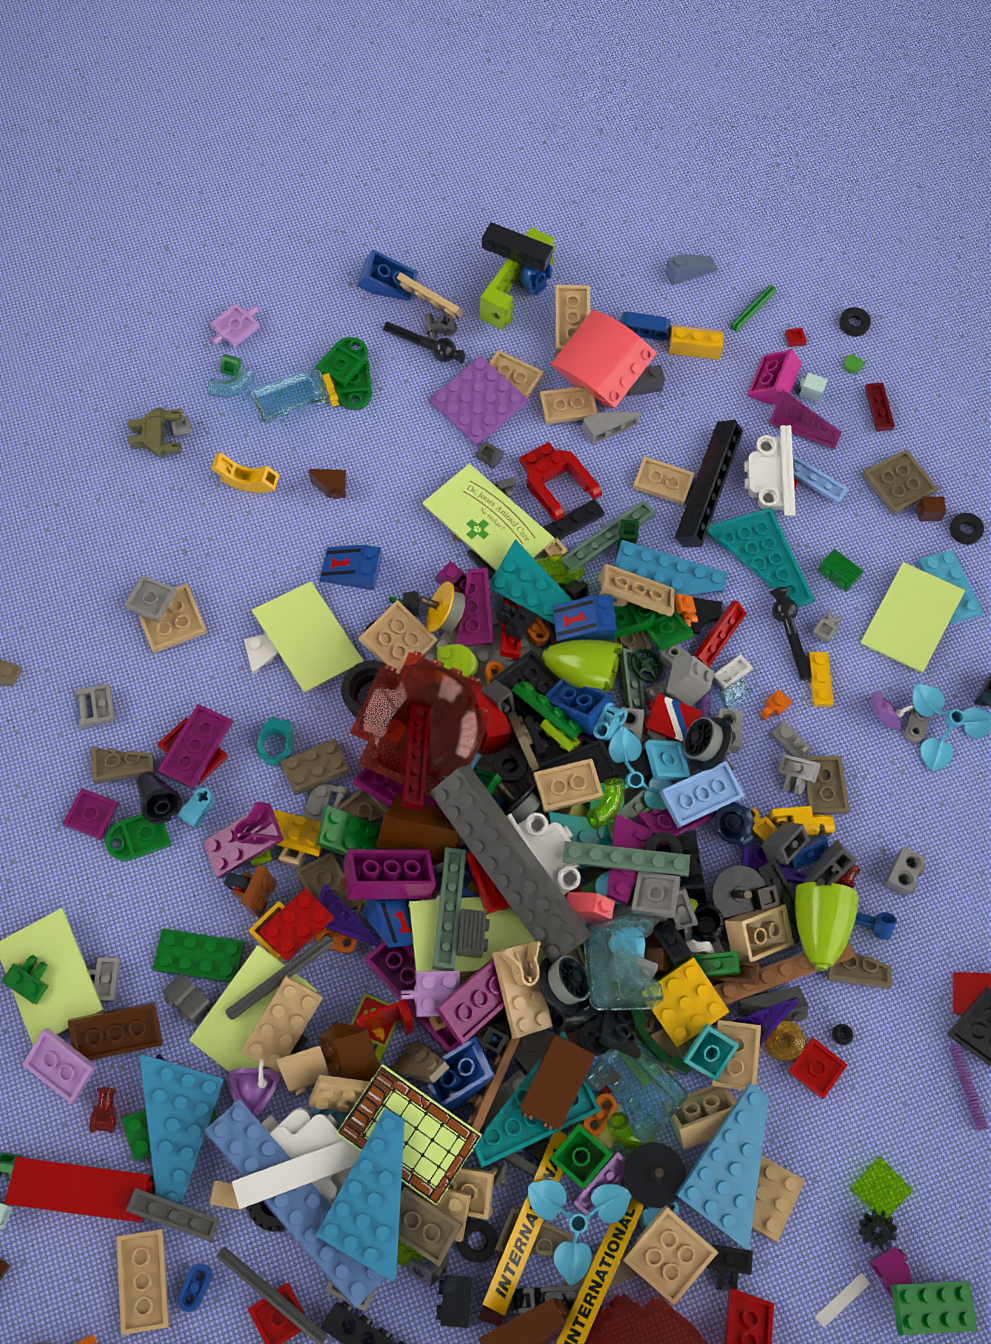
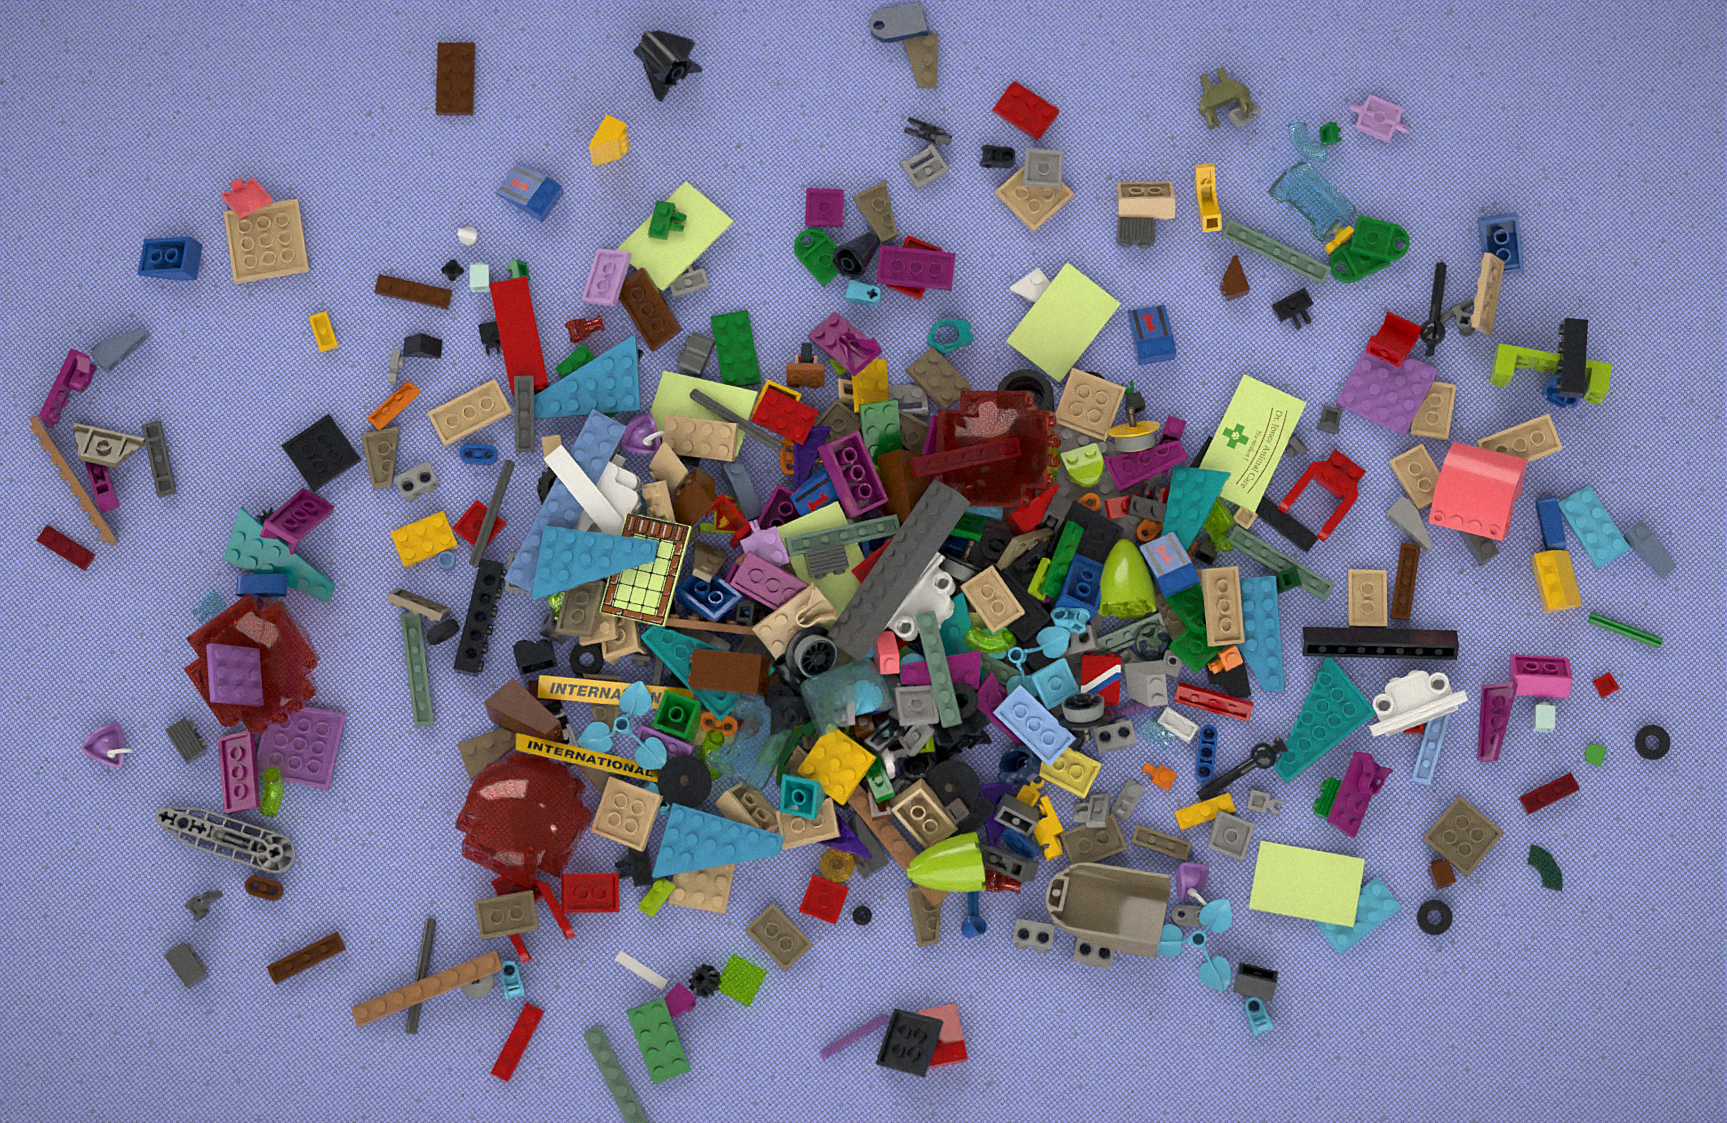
camera: 75 degrees right, 10 degrees up
(40, 1313) = (422, 346): none -> black slope
(62, 1224) = (490, 335): none -> black plate
(70, 684) = (937, 134): none -> black hinge
(85, 598) = (1026, 110): none -> red plate
(118, 640) = (996, 157): none -> black piece
(222, 526) = (1146, 200): none -> tan slope
(248, 545) = (1136, 232): none -> dark grey brick
(318, 441) = (1276, 251): none -> sand green plate
(352, 1000) = (741, 489): none -> sand blue slope
(373, 446) = (1292, 305): none -> black hinge
(439, 378) = (1394, 339): none -> red panel
(658, 299) = (1593, 527): none -> medium azure plate
(658, 447) = (1405, 582): none -> reddish brown plate
(754, 778) = (1071, 772): none -> light yellow plate
(769, 1254) = (656, 896): none -> lime plate
(777, 657) = (1206, 744): none -> blue beam
(835, 537) = (1356, 792): none -> magenta plate
(841, 725) = (1161, 843): none -> dark tan plate
(845, 1130) = (779, 937): none -> dark tan plate
(852, 663) = (1230, 836): none -> light grey plate
(898, 790) = (1111, 906): none -> dark tan windscreen
(938, 823) = (1093, 958): none -> light grey brick
(942, 431) = (1547, 868): none -> clear green tile

